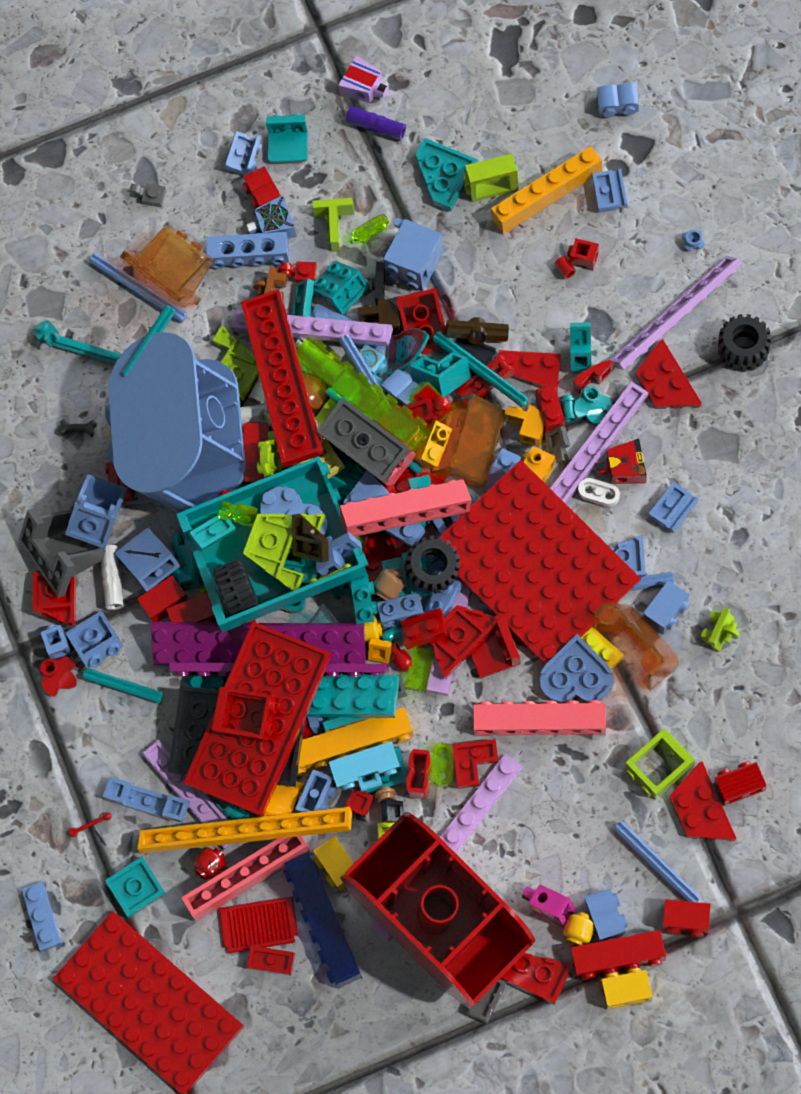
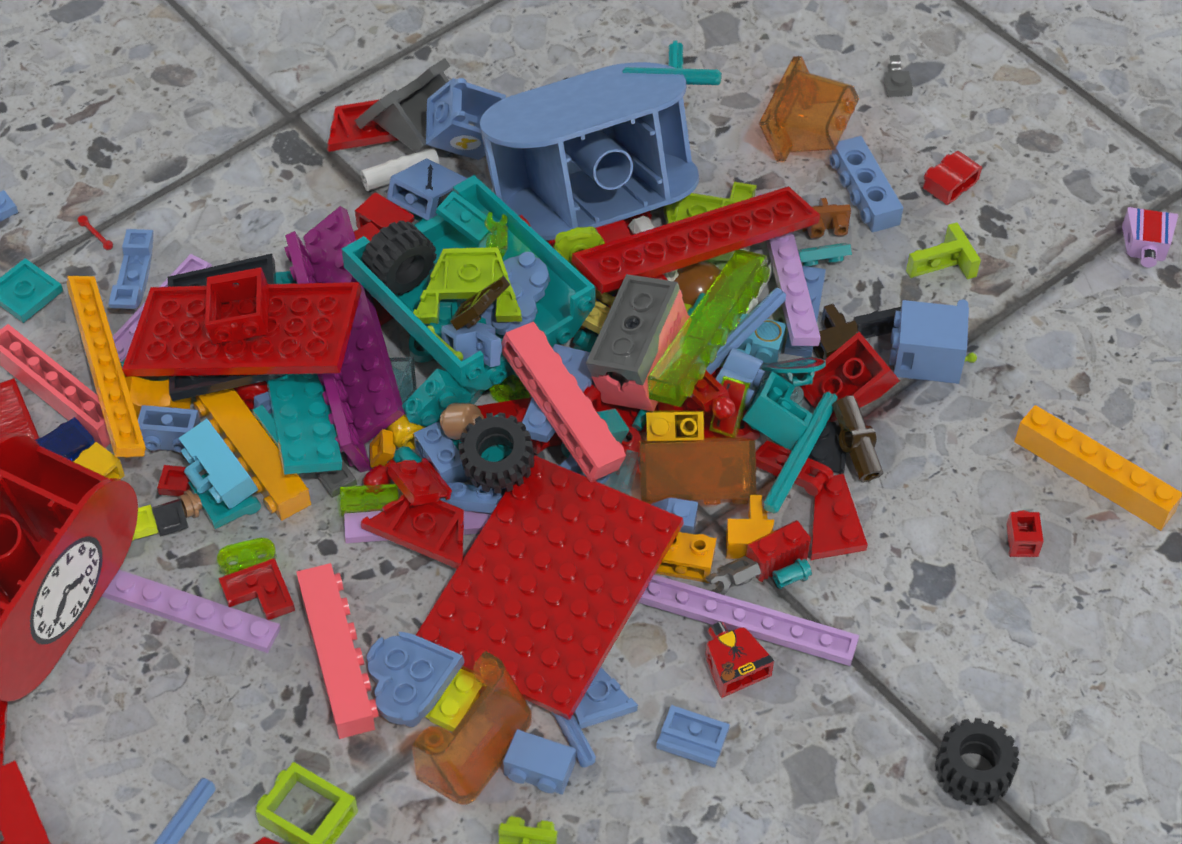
camera: 60 degrees right, 15 degrees down
(46, 332) = (680, 32): teal plate -> none
(59, 649) = (304, 140): medium blue brick -> none
(60, 677) = (268, 155): red plate -> none
(94, 640) = (316, 173): medium blue plate -> none
(123, 685) = (270, 215): teal axle -> none
(135, 286) = (757, 138): medium blue axle -> none
(209, 863) = (64, 348): red head -> none
(242, 153) = (991, 145): medium blue bracket -> none
(273, 218) = (919, 196): torso -> none
(287, 138) = (1033, 184): teal bracket -> none
(301, 272) = (863, 247): red plate -> none
(341, 286) = (857, 286): teal bracket -> none
(375, 123) = (1099, 264): dark purple axle -> none
(376, 224) = (943, 290): clear neon green plate -> none
(420, 769) = (218, 529): red brick -> none
(442, 172) = (1067, 352): teal plate -> none
(491, 177) = (1090, 387): lime window -> none
(496, 652) = (417, 576): red bracket -> none
(549, 904) = (72, 725): dark pink torso -> none
(565, 267) = (995, 519): red hinge -> none
(579, 929) = (48, 769): yellow head -> none
(580, 346) = (883, 565): teal brick -> none
(592, 408) = (803, 599): teal plate -> none
(597, 373) = (857, 593): red slope -> none
(600, 490) = (682, 641): white plate -> none
(605, 915) = (74, 796): medium blue brick -> none
(609, 190) = (1134, 541): medium blue plate -> none
(665, 380) = (882, 681): red wing -> none
(671, 316) = (998, 671): lavender plate -> none
(693, 234) = (1113, 656): medium blue plate -> none

